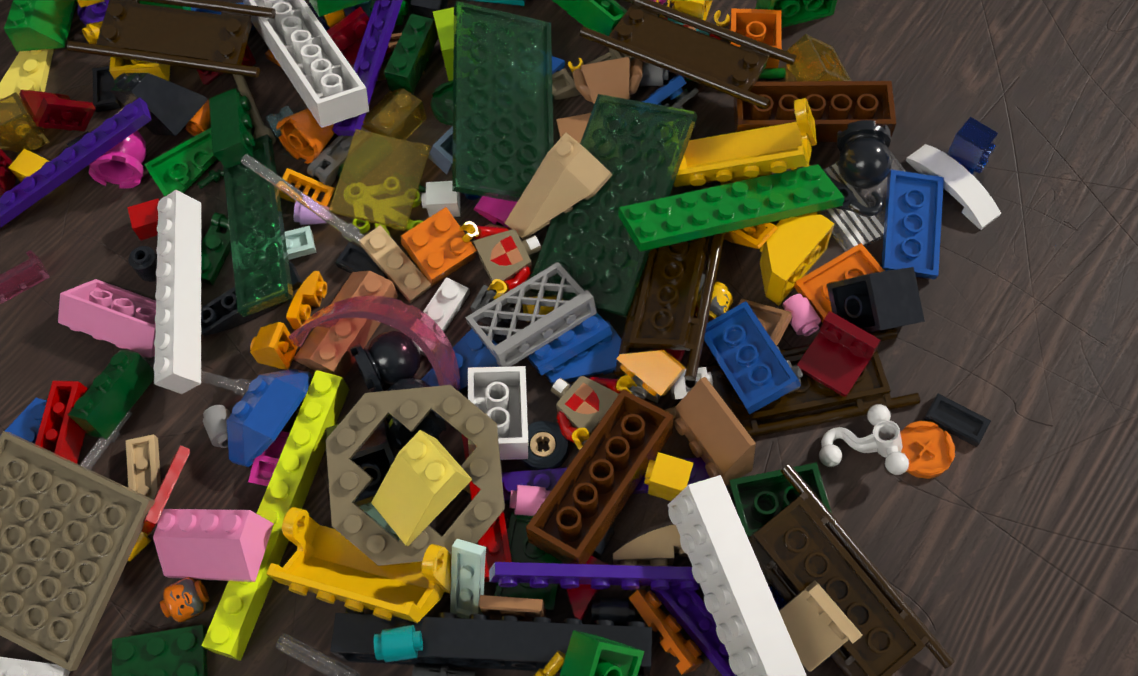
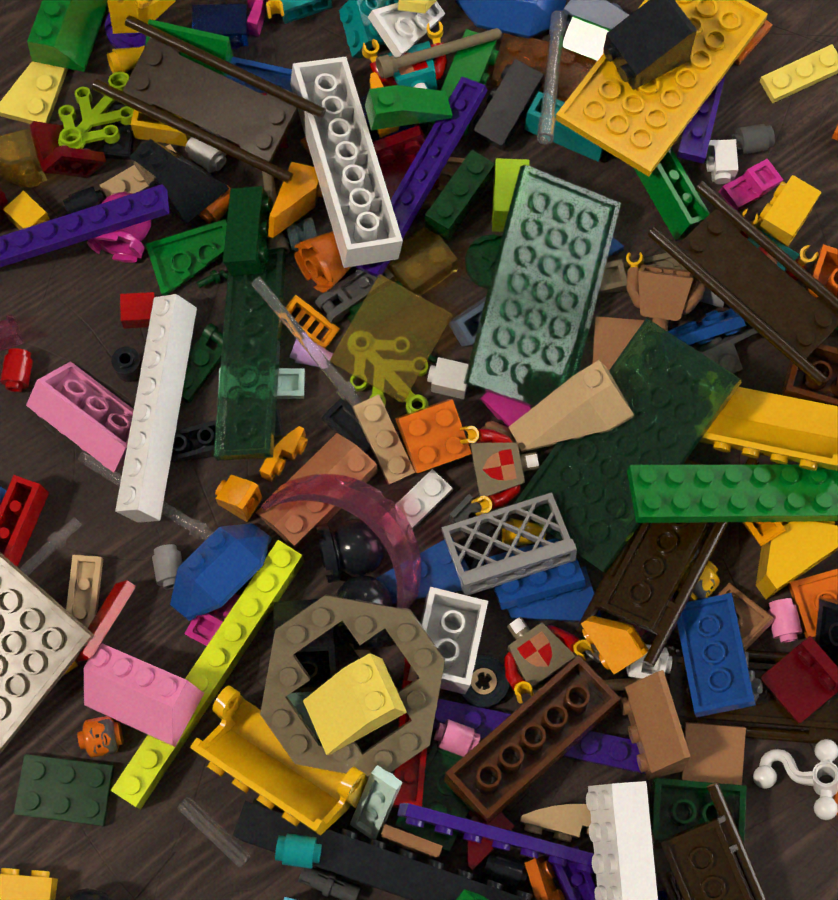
camera: 10 degrees right, 10 degrees up
(45, 296) = (16, 370): none -> red brick
(83, 76) = (78, 136): none -> lime plant
(112, 394) = (70, 504): dark green brick -> none
(185, 79) = (205, 155): none -> white brick
(267, 93) = (294, 198): none -> light orange slope
(667, 476) = (597, 759): yellow brick -> none
(778, 444) = (714, 753): none -> medium nougat tile

